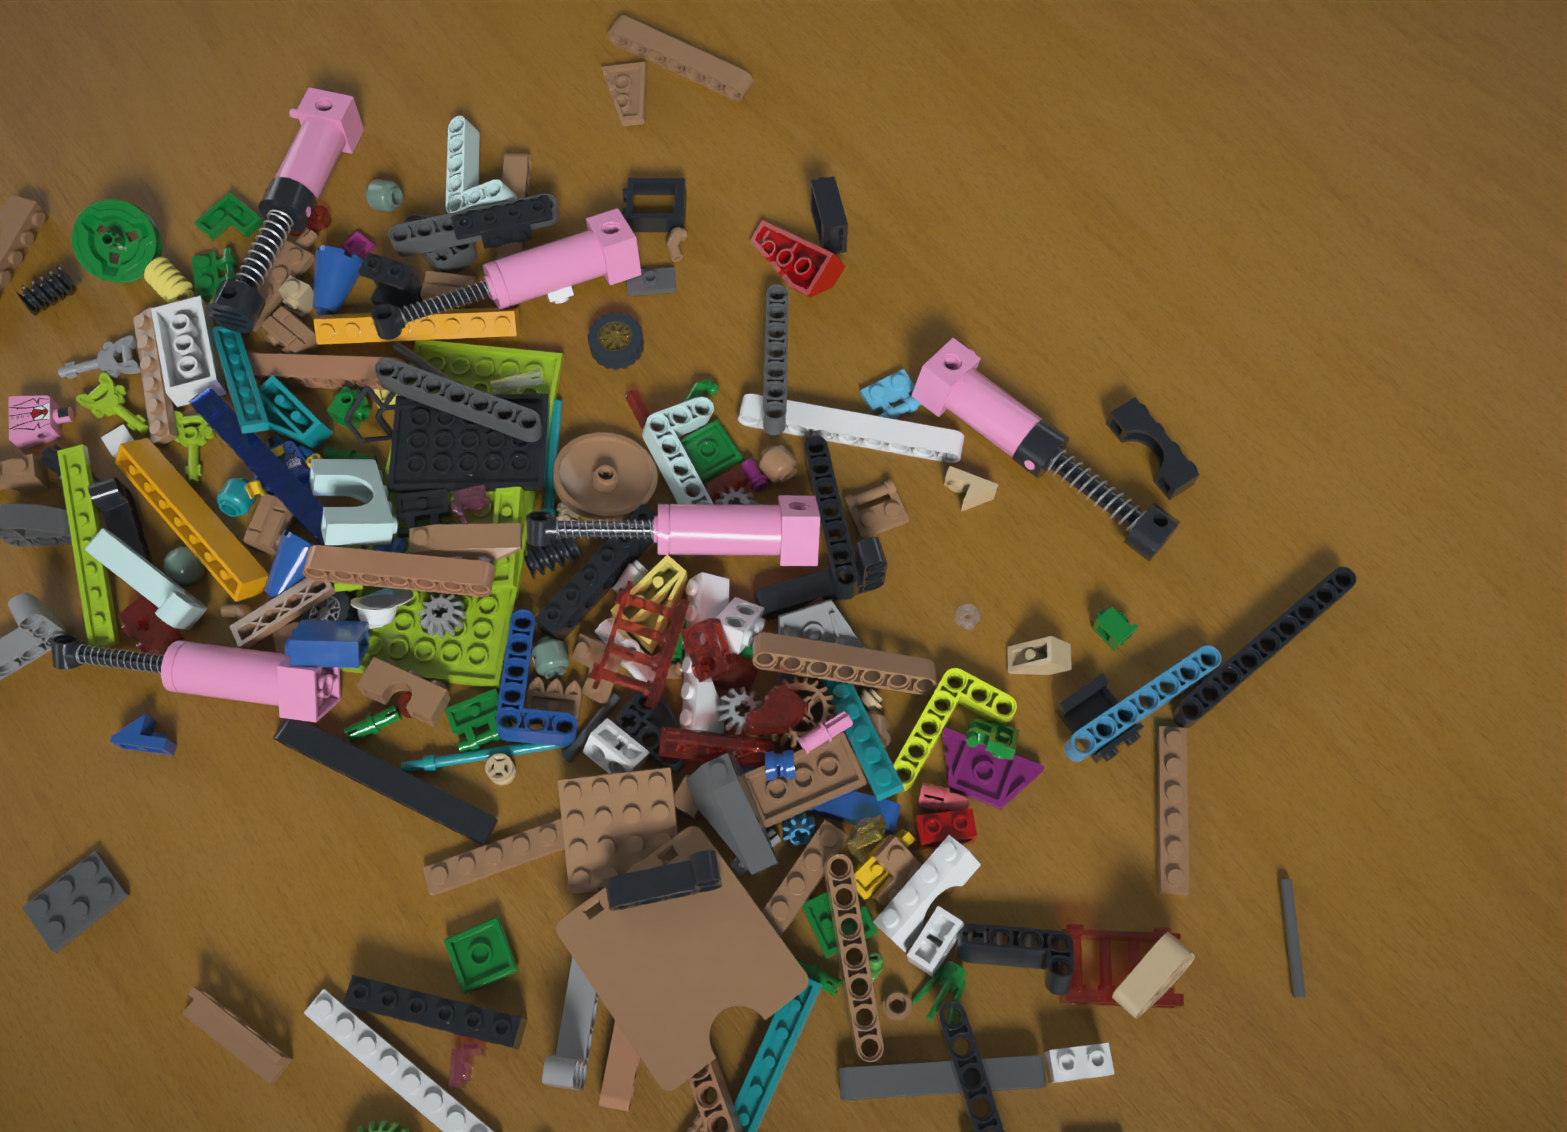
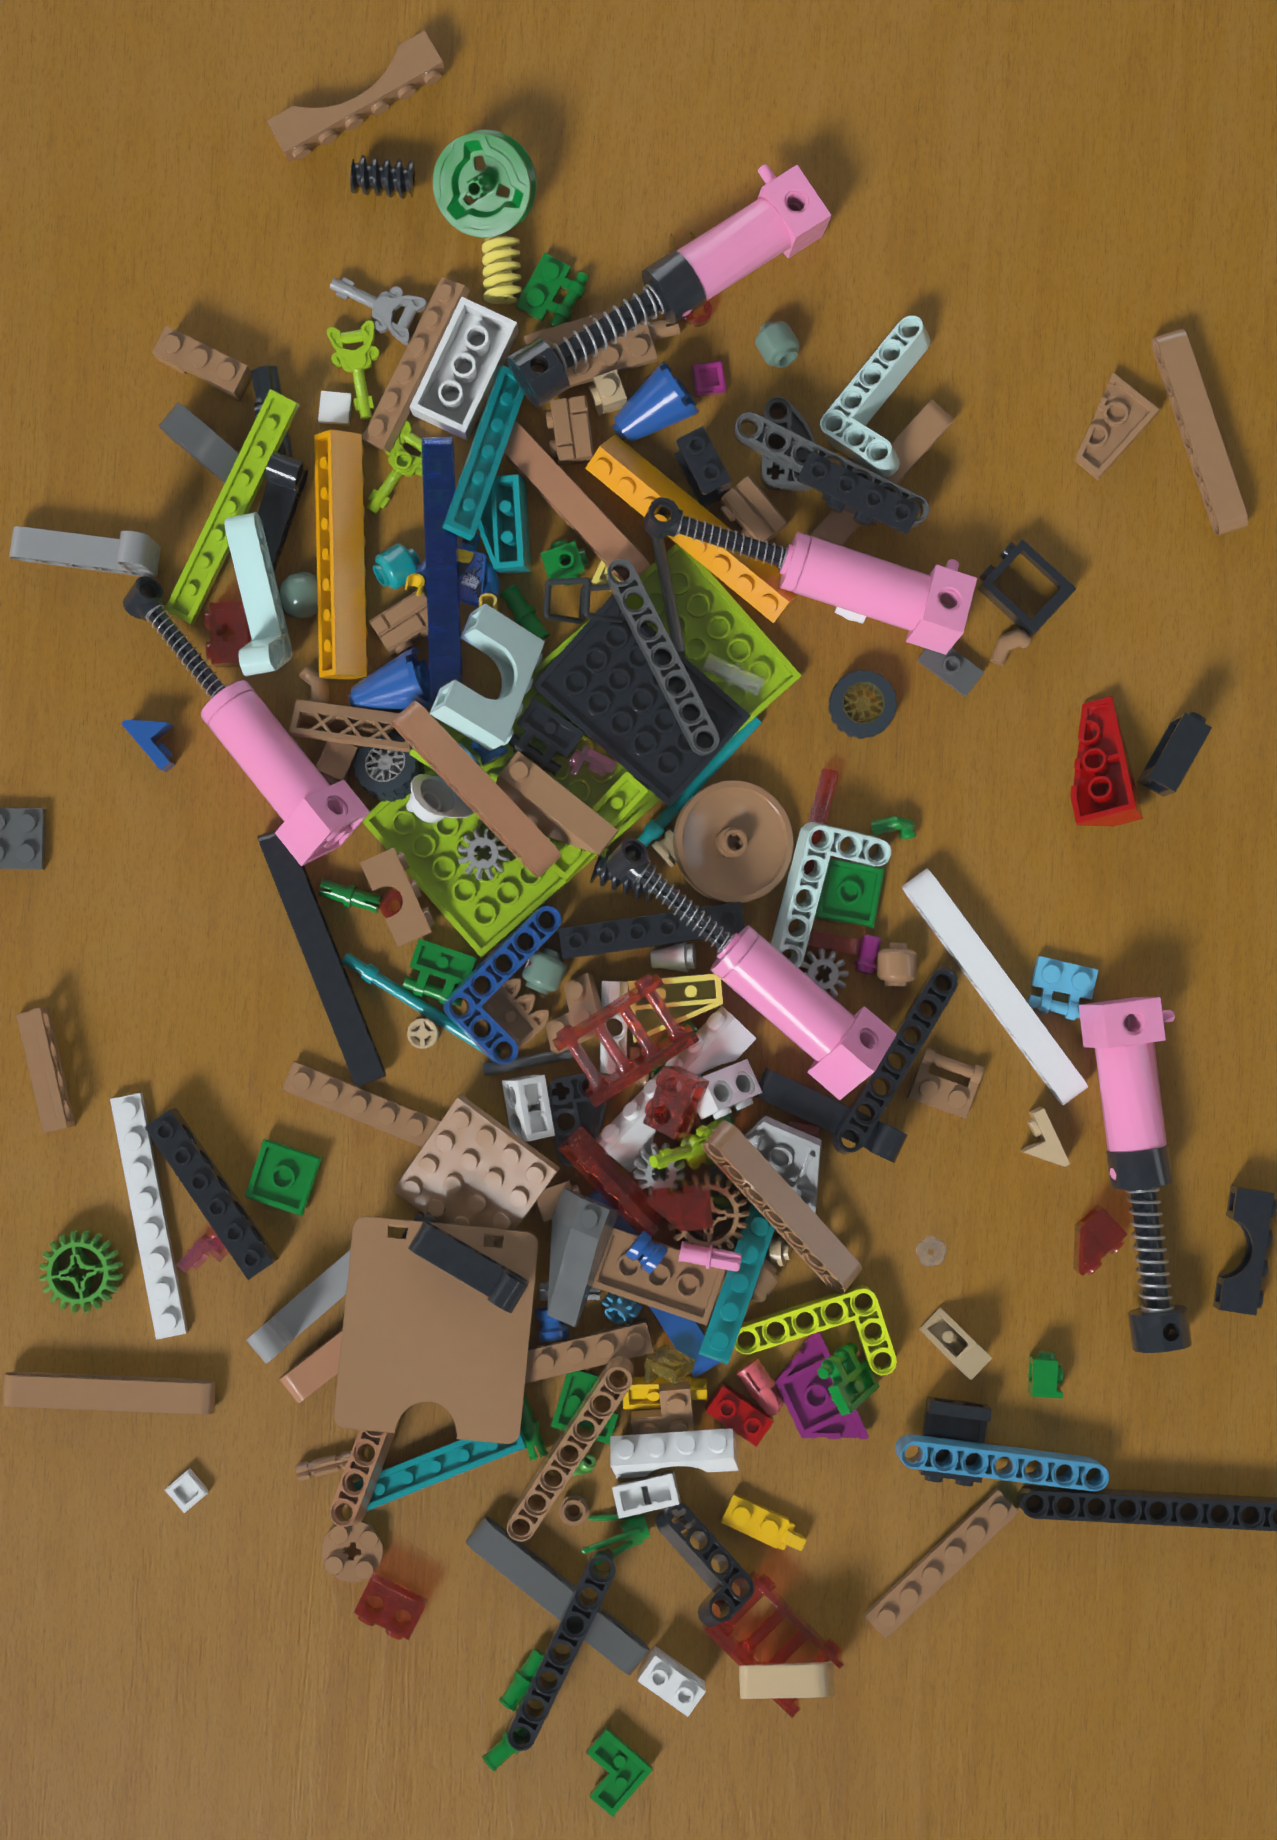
camera: 45 degrees right, 20 degrees up
(36, 420) = (276, 320): bright pink torso -> none
(227, 213) = (614, 229): green plate -> none
(328, 643) = (363, 807): blue brick -> none
(749, 676) = (690, 1149): none -> lime piece
(763, 885) = (550, 1328): none -> blue wheel
(775, 360) = (997, 852): dark grey beam -> none
(1032, 893) = (761, 1523): none -> yellow hinge
(1058, 518) = (1094, 1238): none -> clear red slope
(1292, 938) = (933, 1743): dark grey bar -> none

